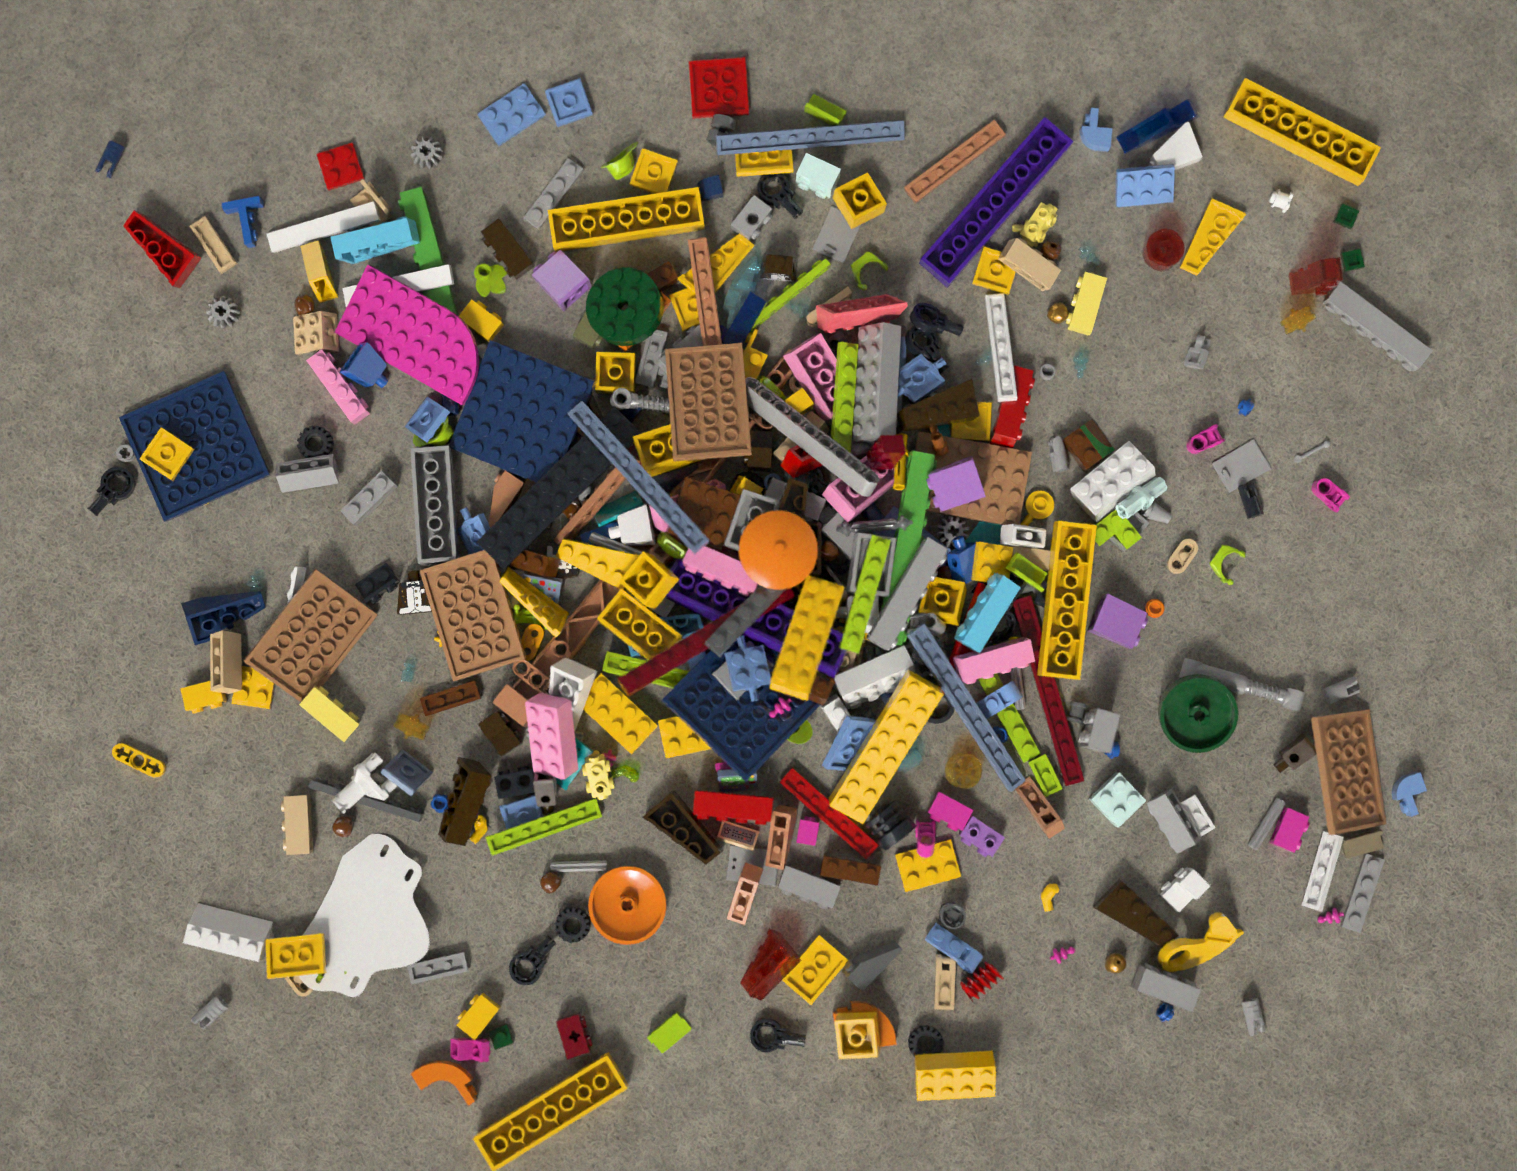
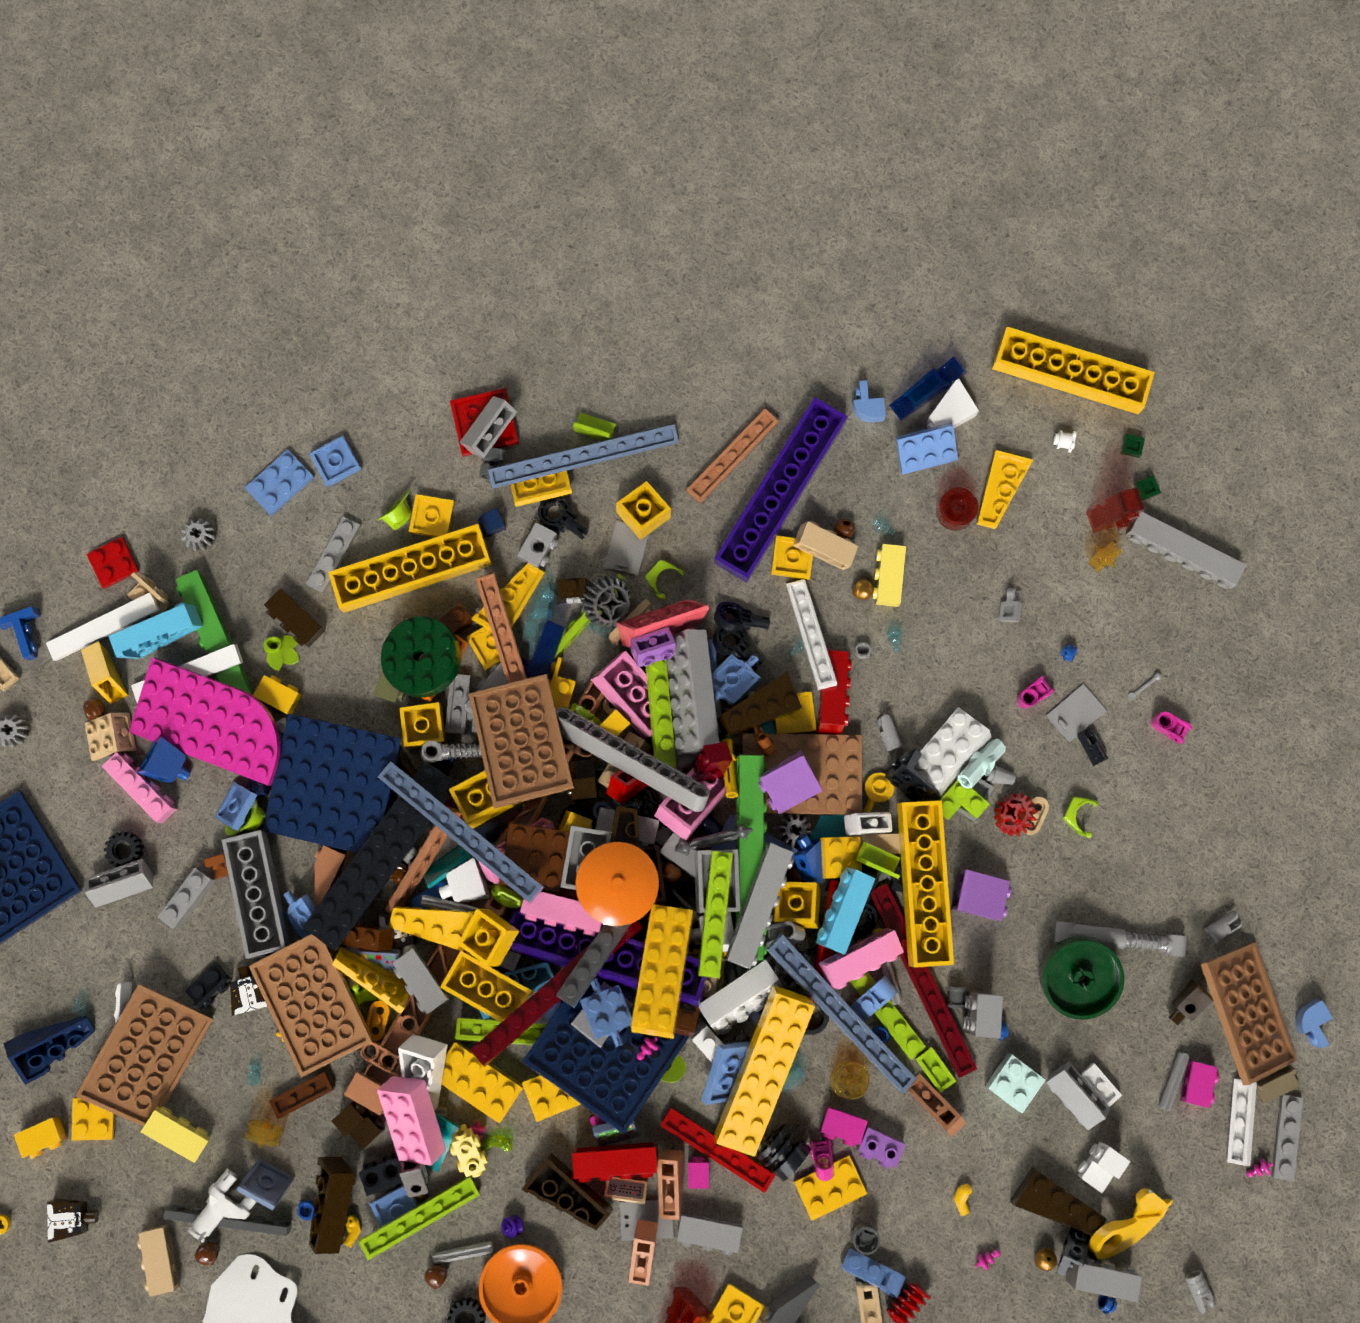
camera: 10 degrees left, 5 degrees down
(220, 773) = (68, 1218): none -> torso
(225, 662) = (58, 1098): tan brick -> none
(403, 473) = (218, 866): none -> dark orange bracket
(561, 279) = (353, 640): medium lavender slope -> none
(578, 611) = (420, 981): none -> light grey brick
(627, 849) = (512, 1226): none -> dark purple wheel
(723, 93) = (488, 427): none -> light grey brick
(813, 288) = (603, 595): none -> dark grey gear
(817, 176) = (597, 493): light aqua brick -> none
(848, 334) = (653, 647): none -> medium lavender brick
(850, 870) = (750, 1207): reddish brown brick -> none
(1036, 227) = (825, 508): light yellow brick -> none
(1067, 499) = (906, 778): none -> black bracket
(1088, 445) = (917, 718): reddish brown slope -> none
(1143, 958) = (1073, 1251): none -> black bracket
(1154, 608) = (1015, 874): orange plate -> none
(1164, 551) = (1016, 814): none -> red gear

